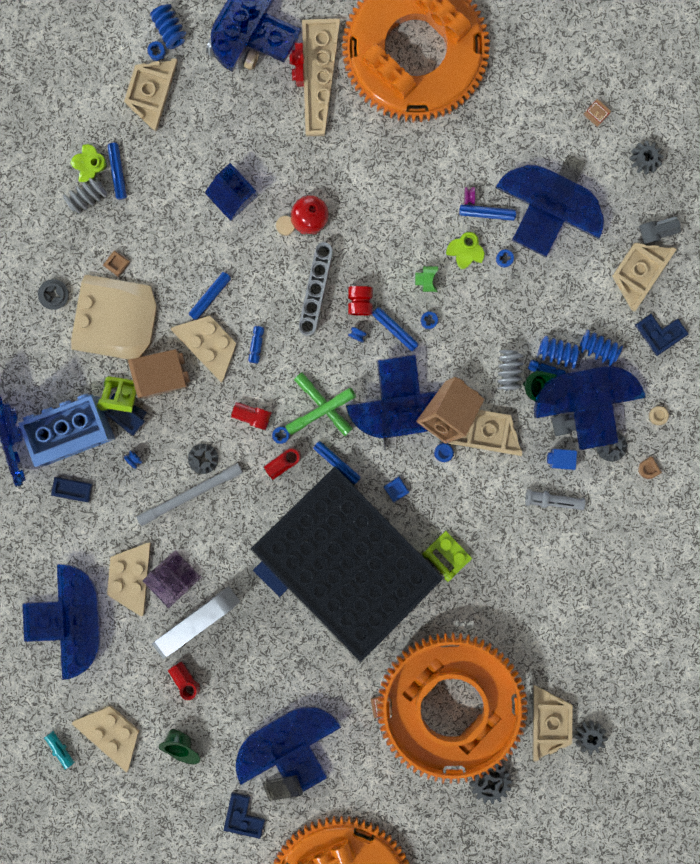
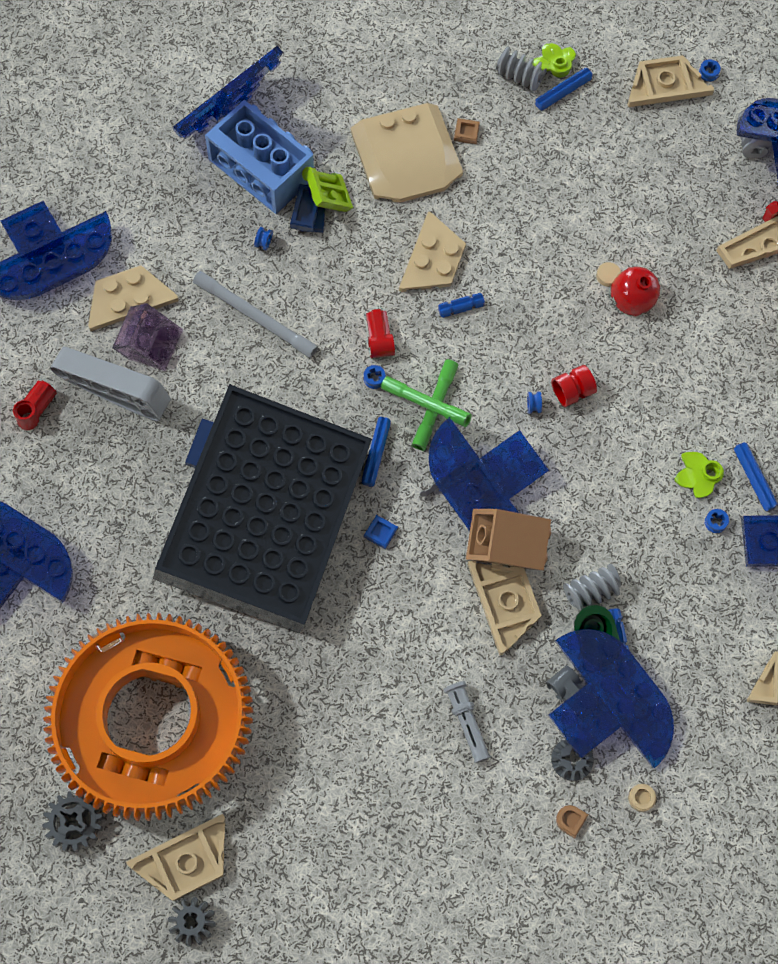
camera: 60 degrees right, 20 degrees down
(50, 286) = (405, 80): dark grey gear -> none
(71, 489) = (196, 196): dark blue tile -> none
(158, 373) = (372, 217): medium nougat slope -> none
(167, 26) = (742, 68): blue piece -> none
(206, 467) = (295, 317): dark grey gear -> none
(210, 295) = (487, 234): blue axle -> none
(231, 192) = (611, 201): clear blue slope -> none
(251, 59) = (760, 159): tan tile -> none
(281, 463) = (343, 391): red piece -> none
(317, 299) = (565, 327): light grey beam -> none
(395, 329) = (564, 441): blue axle -> none
(423, 322) = (590, 478): blue bush -> none
(426, 278) = (641, 443): bright green piece -> none
(443, 452) = (453, 564): blue tile -> none
(451, 551) = (340, 630): lime plate -> none
(469, 195) = (761, 446): magenta bush -> none
(558, 351) = (646, 634): blue piece -> none
(562, 459) = (523, 703): blue brick -> none
(600, 347) = (679, 680): blue piece -> none
(658, 338) = (734, 749): dark blue tile -> none

